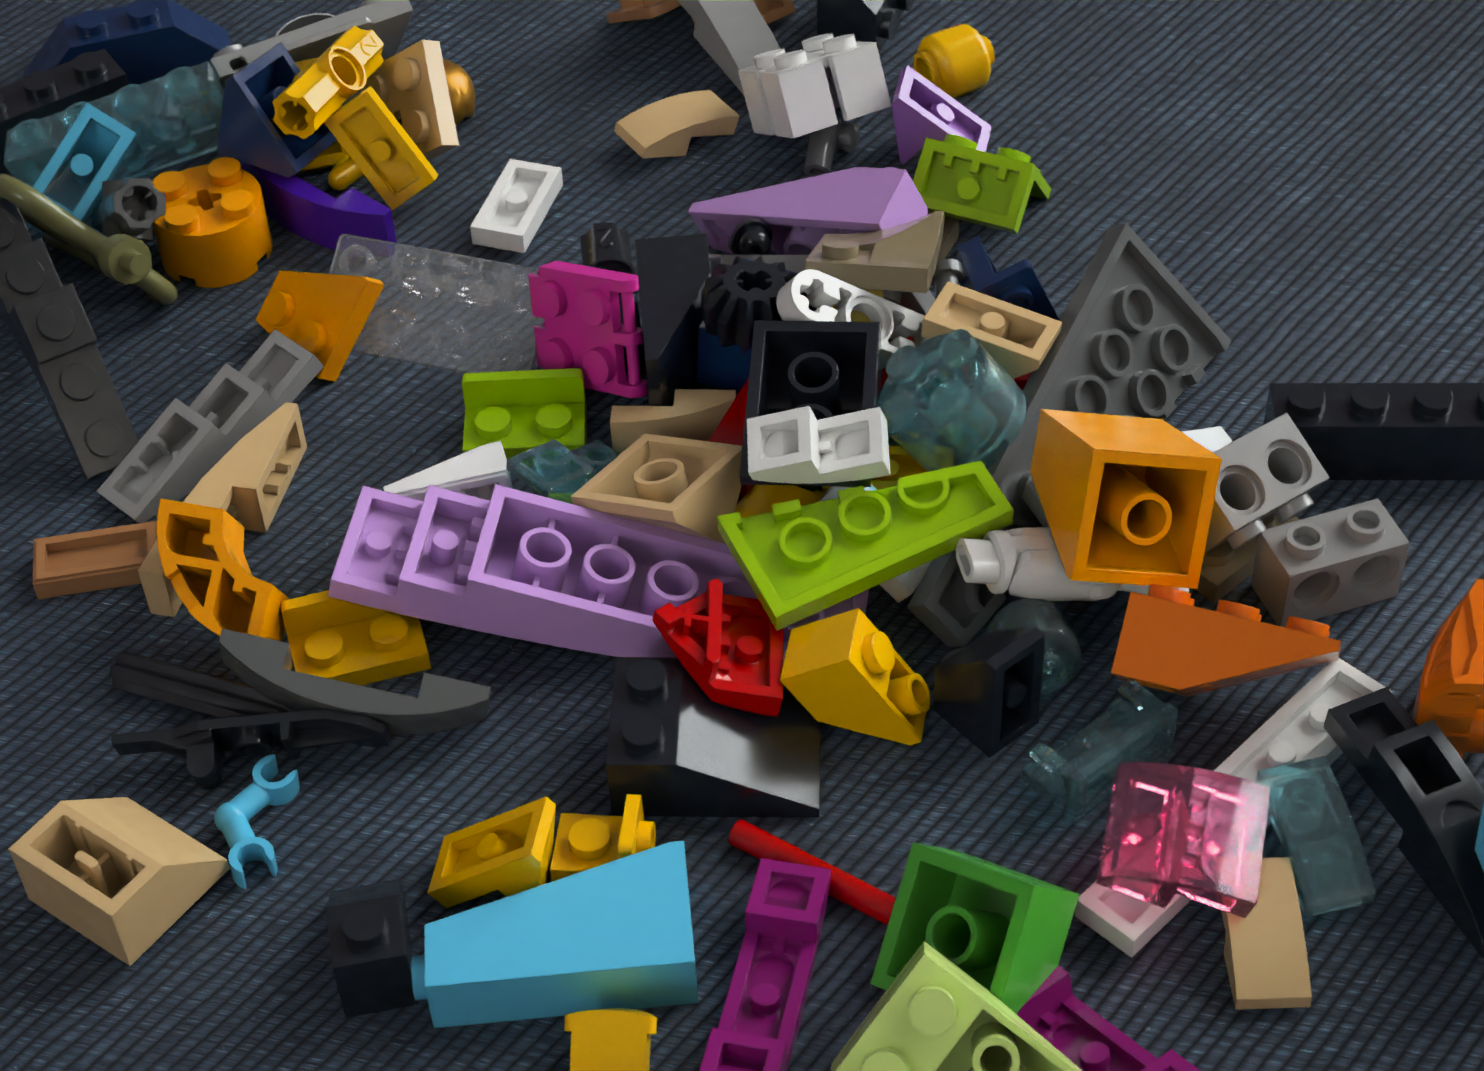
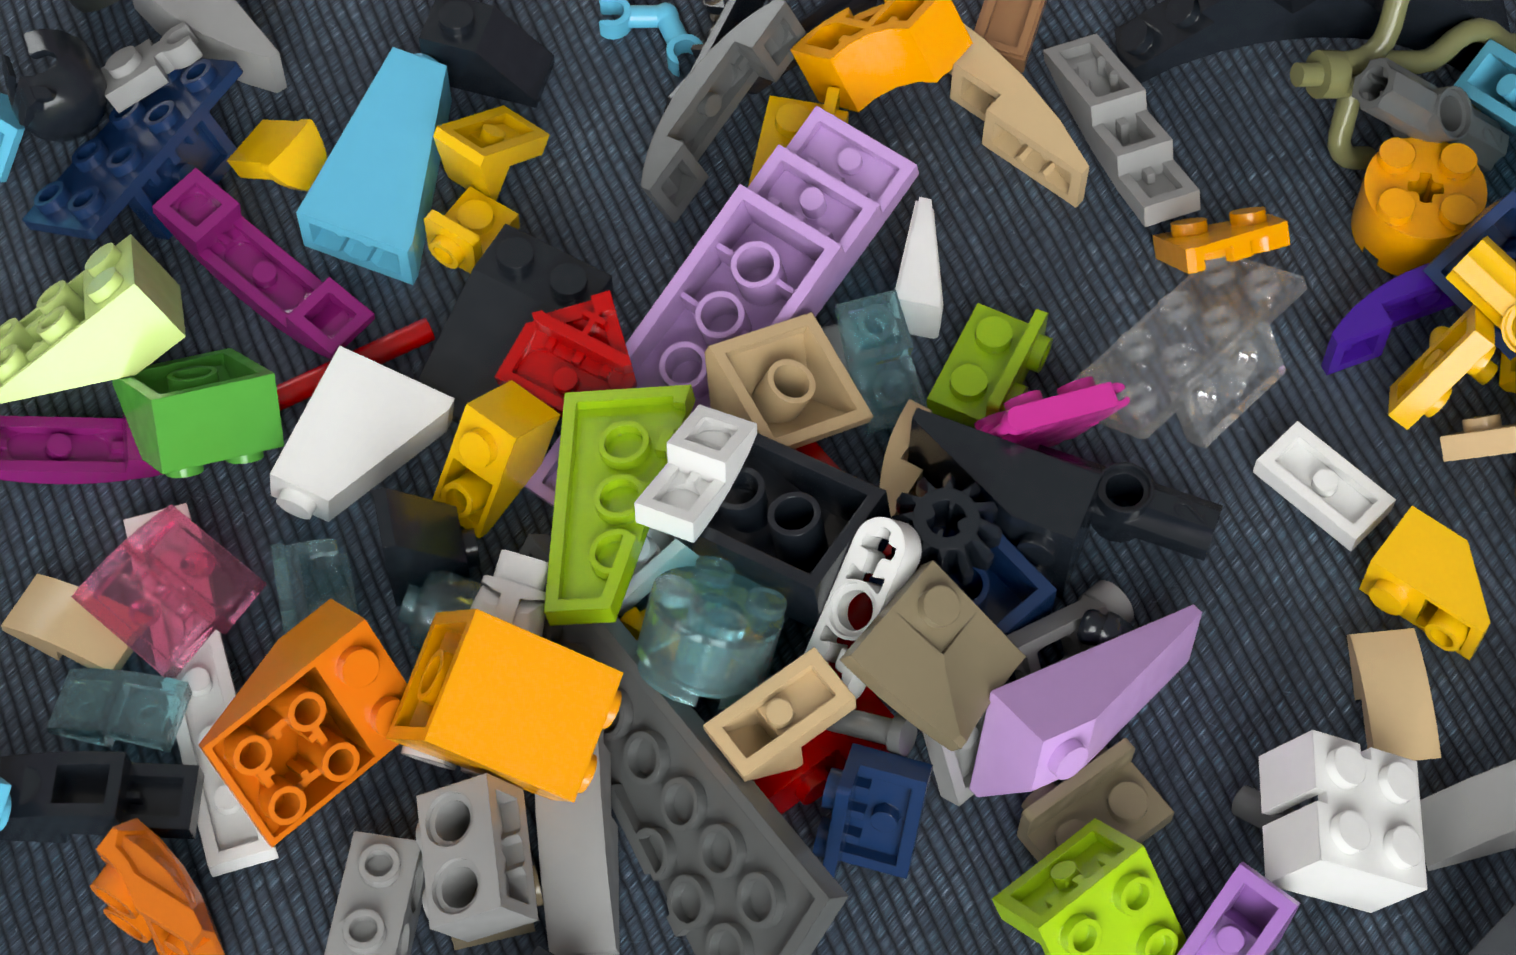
camera: 115 degrees right, 15 degrees up
(570, 125) = (1431, 582): none -> yellow slope
(901, 792) = (355, 435): none -> white slope

